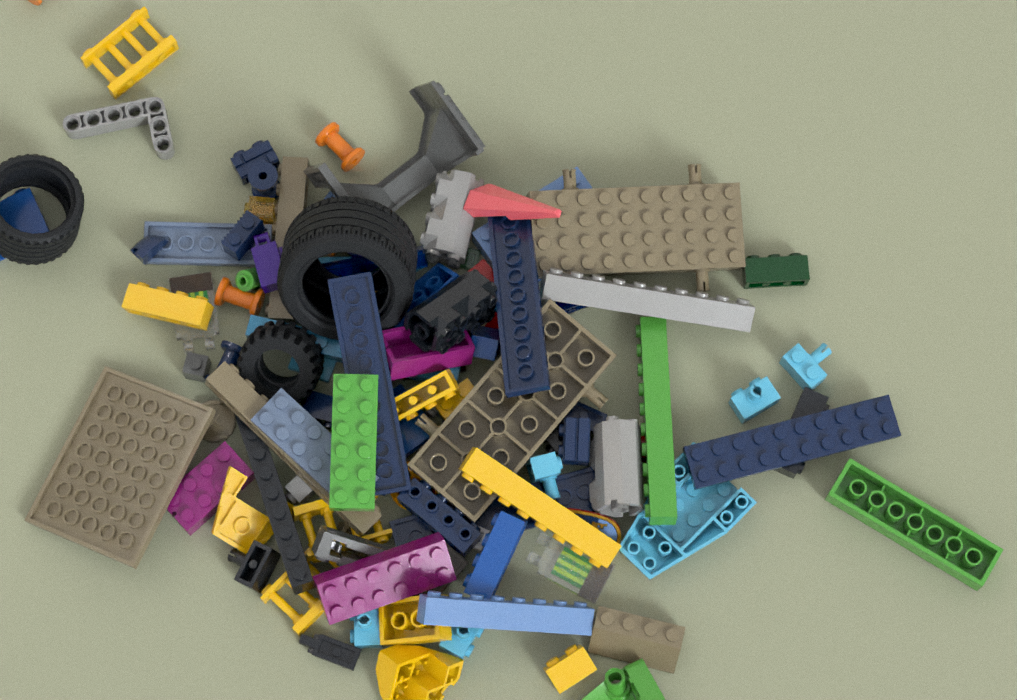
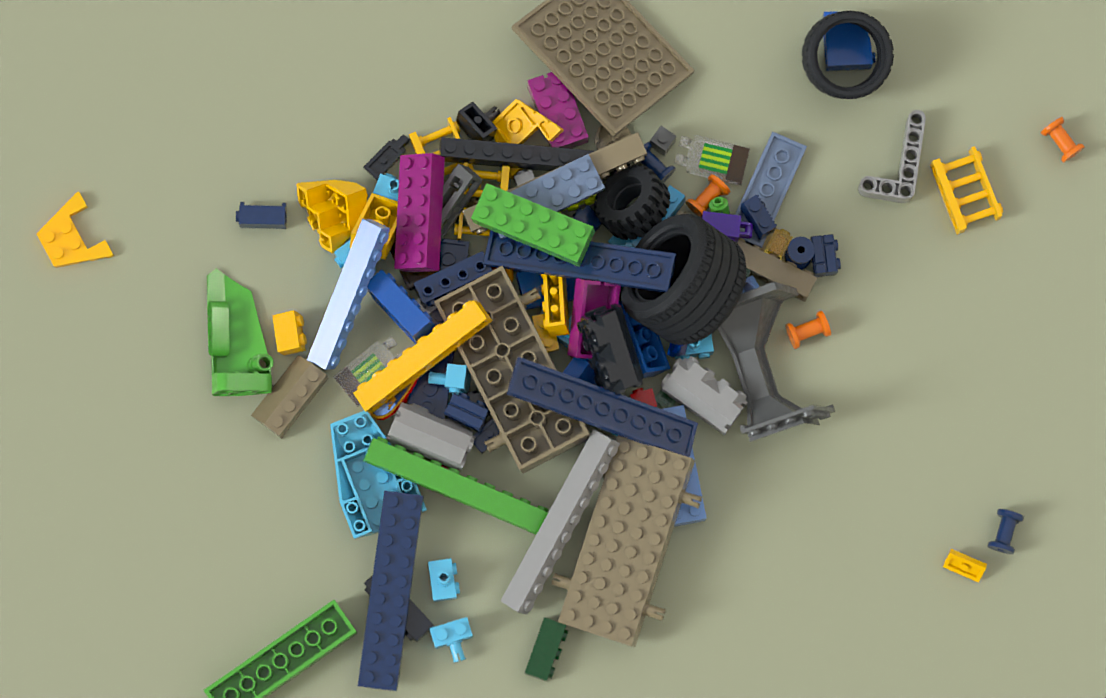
camera: 115 degrees right, 5 degrees up
(148, 247) = (781, 139): dark blue brick -> none
(168, 306) = (722, 136): yellow brick -> none
(497, 201) = (698, 431): coral wedge -> none

